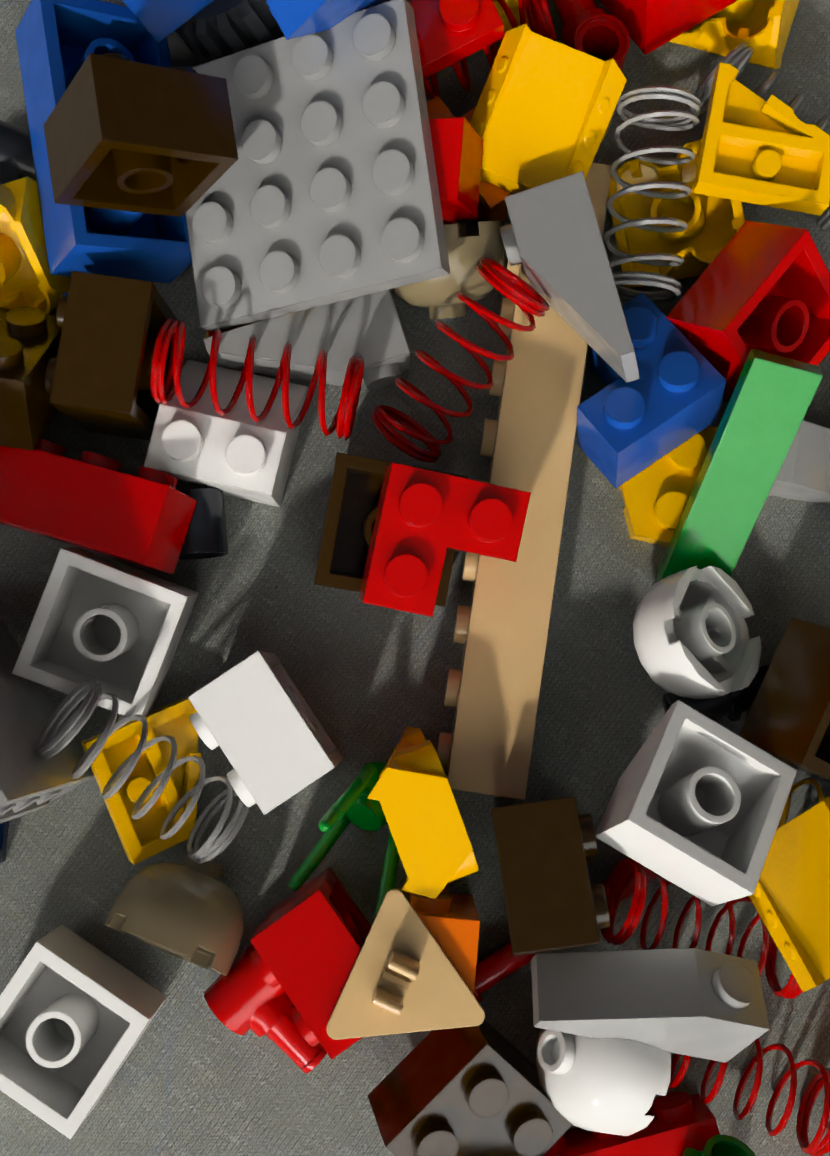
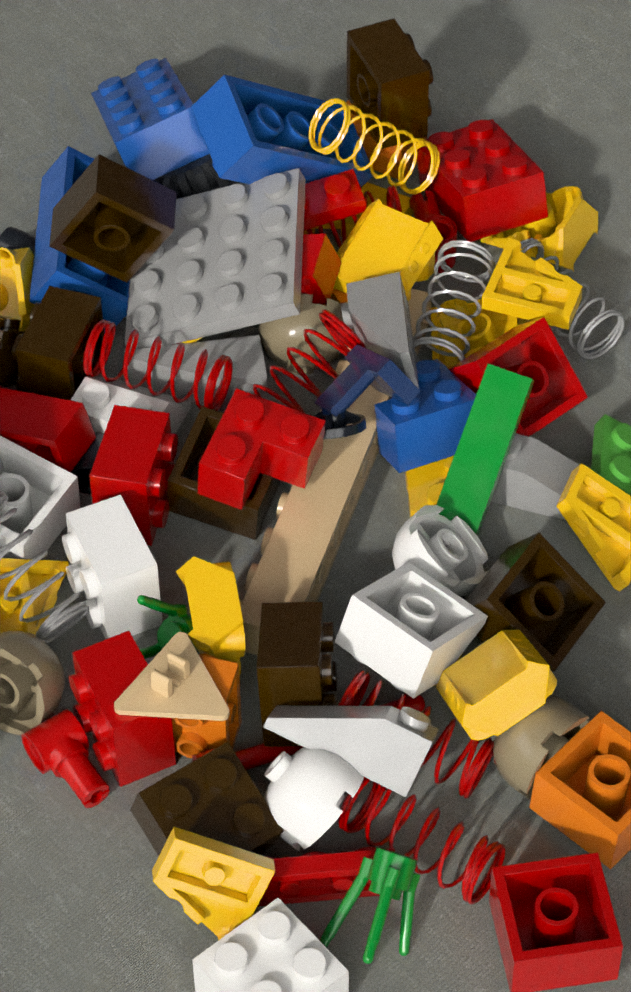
camera: 10 degrees right, 35 degrees down
(262, 559) = (136, 464): none -> red brick
(548, 398) = (364, 370): none -> dark blue piece

